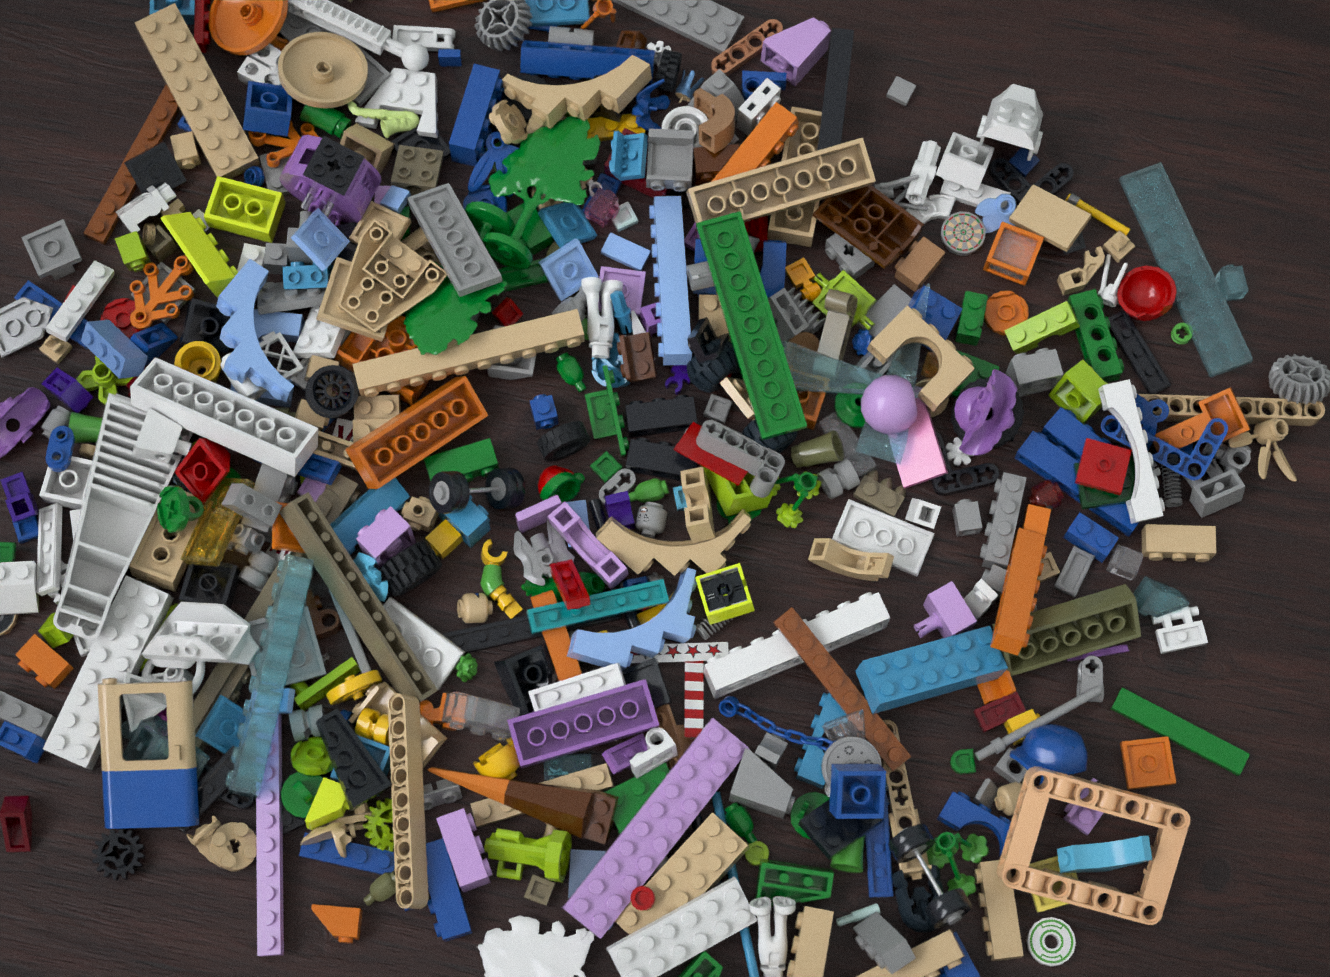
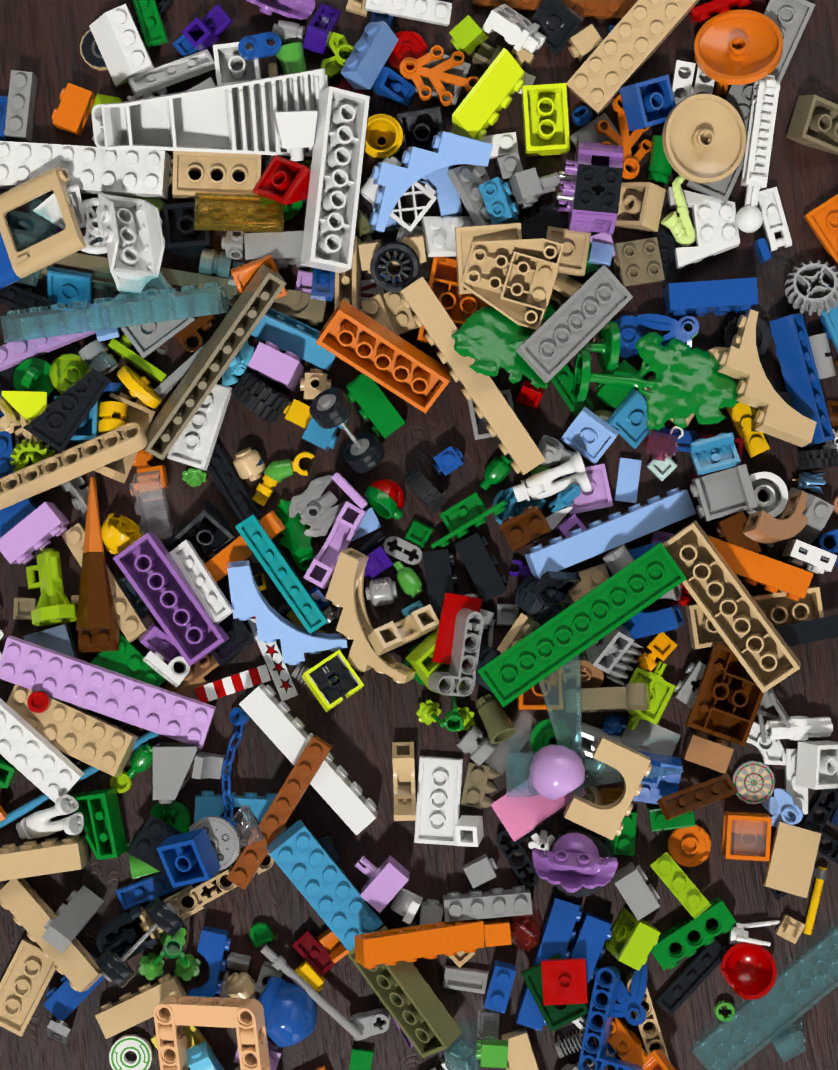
camera: 70 degrees right, 15 degrees up
(151, 232) = (495, 41): tan axle -> none
(175, 509) = (234, 170): green tile -> none
(251, 504) = (257, 237): light grey brick -> none
(320, 239) = (531, 201): light blue plate -> none
(508, 122) = (711, 330): tan plate -> none
(569, 584) = (290, 542): red plate -> none
(645, 105) = (777, 450): blue animal -> none
(858, 915) = (98, 886): light aqua pin -> none
(958, 283) = (697, 796): none -> reddish brown plate
(1091, 265) = (758, 909): tan piece -> none
(1120, 402) = (542, 1028): white arch -> none
(1155, 560) = (492, 1053): none -> bright green brick

